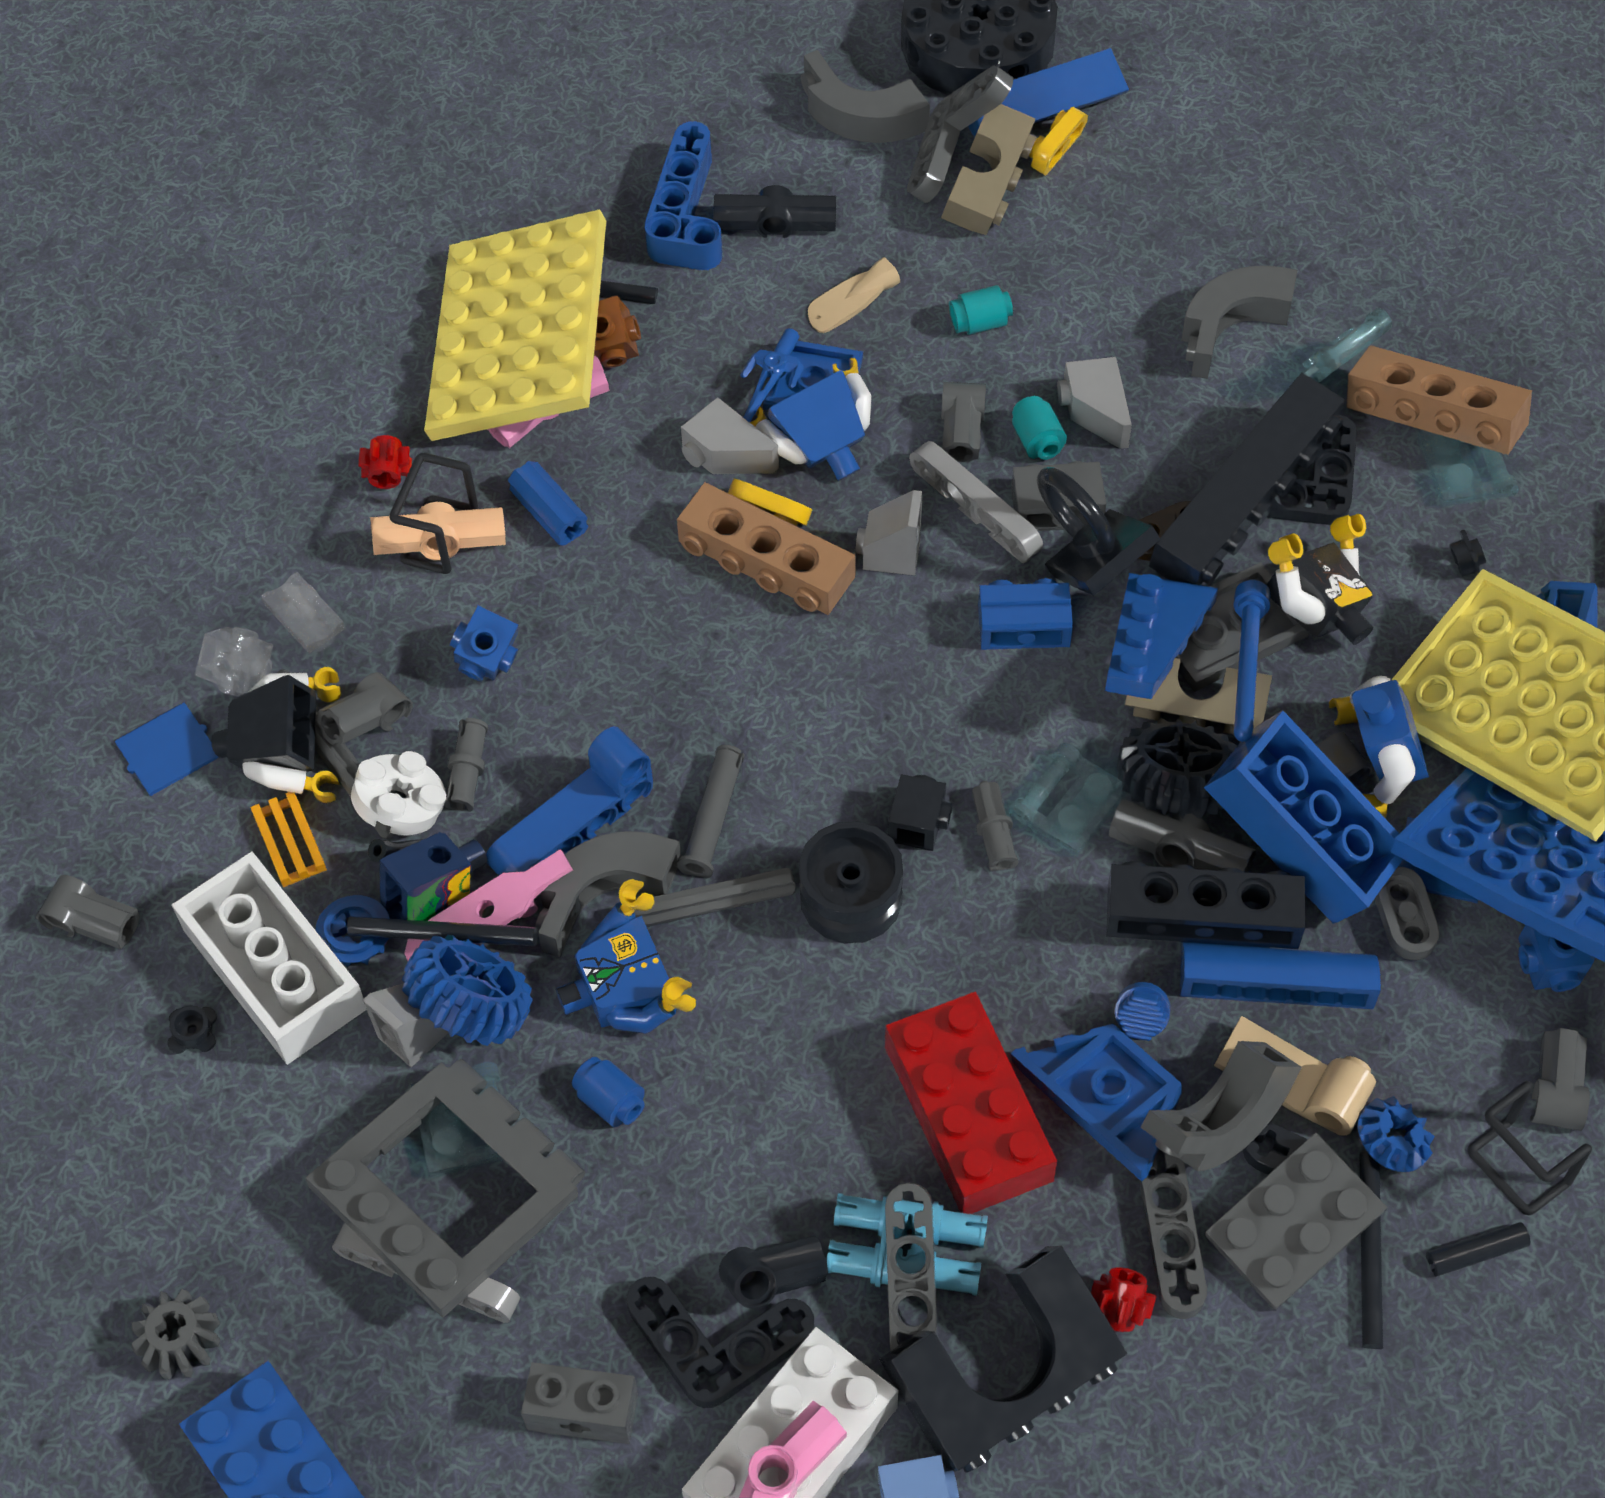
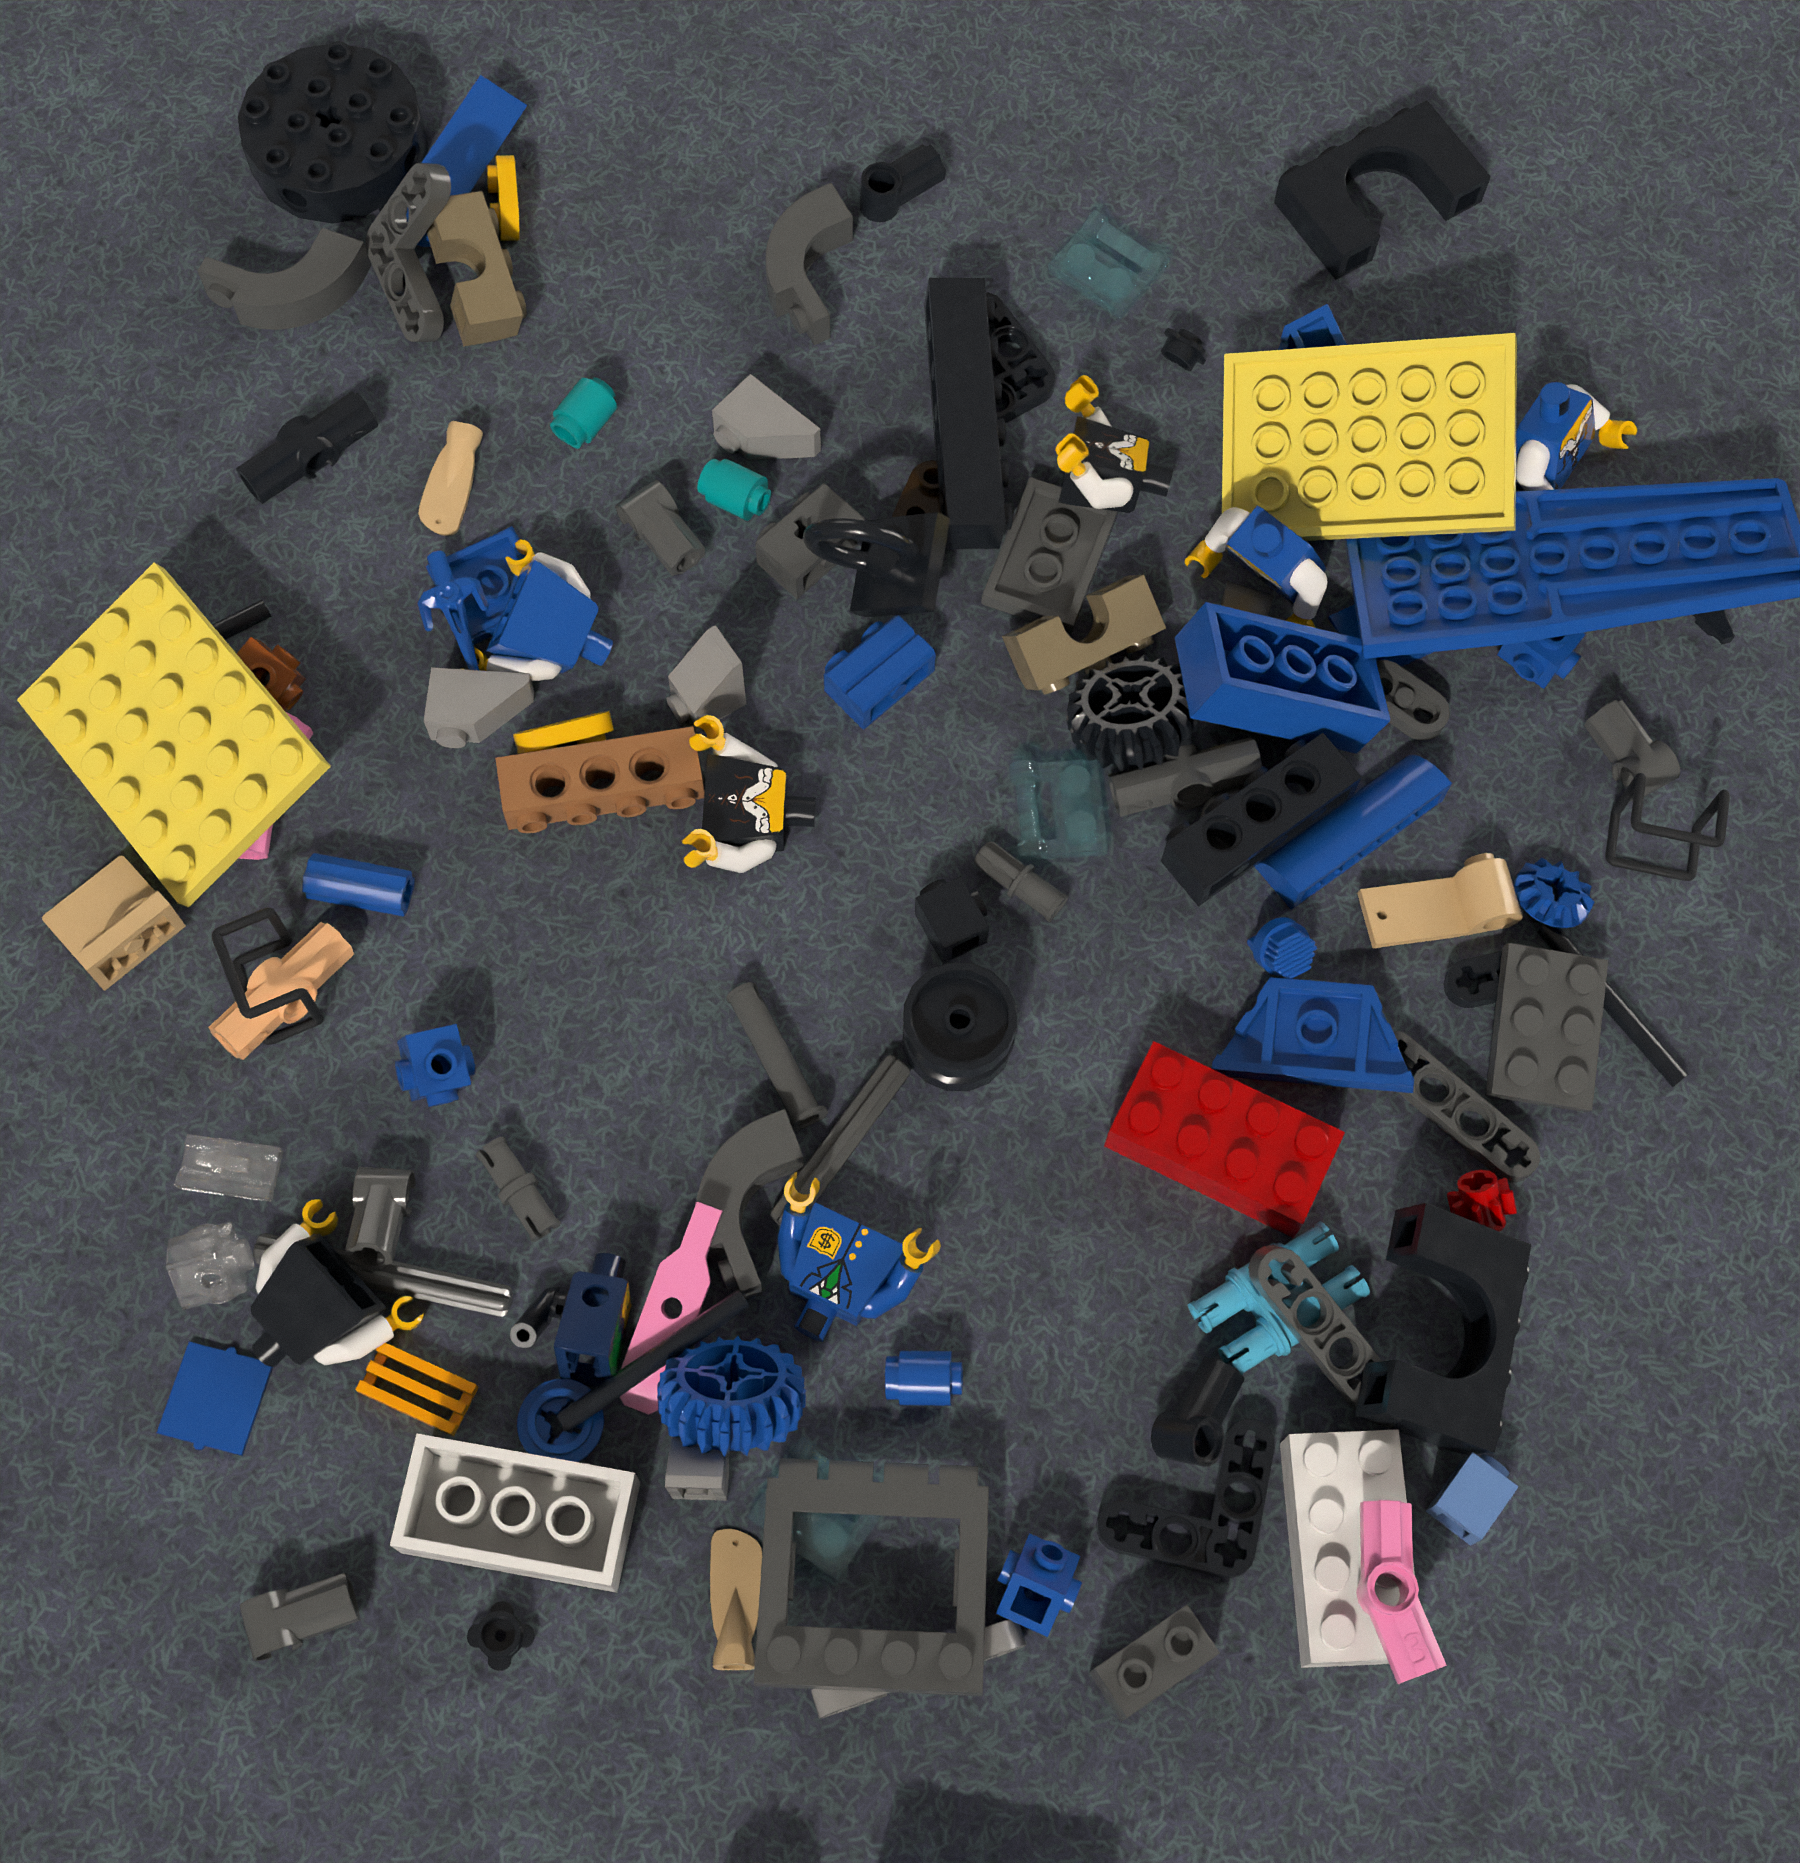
camera: 45 degrees left, 10 degrees up
(351, 1122) = (734, 1597): none -> tan piece
(374, 411) = (113, 922): none -> tan bracket
(385, 462) = (165, 961): red gear -> none
(401, 773) = (485, 1240): white plate -> none
(552, 1283) = (1038, 1584): none -> blue brick
(599, 795) = (660, 1157): blue beam -> none
(671, 228) = (200, 490): blue beam -> none
(843, 634) = (742, 804): none -> torso
(977, 501) = (742, 595): light grey beam -> none
(1153, 630) = (1014, 608): blue wing -> none
(1231, 1112) = (1430, 977): dark grey arch -> none
(1251, 604) = (1065, 522): blue piece -> none
(1343, 303) = (893, 184): none -> black piece
(1347, 345) = (932, 229): clear light blue plate -> none
(1439, 399) = (1049, 223): medium nougat brick -> none
(1478, 1249) = (1686, 936): black piece -> none

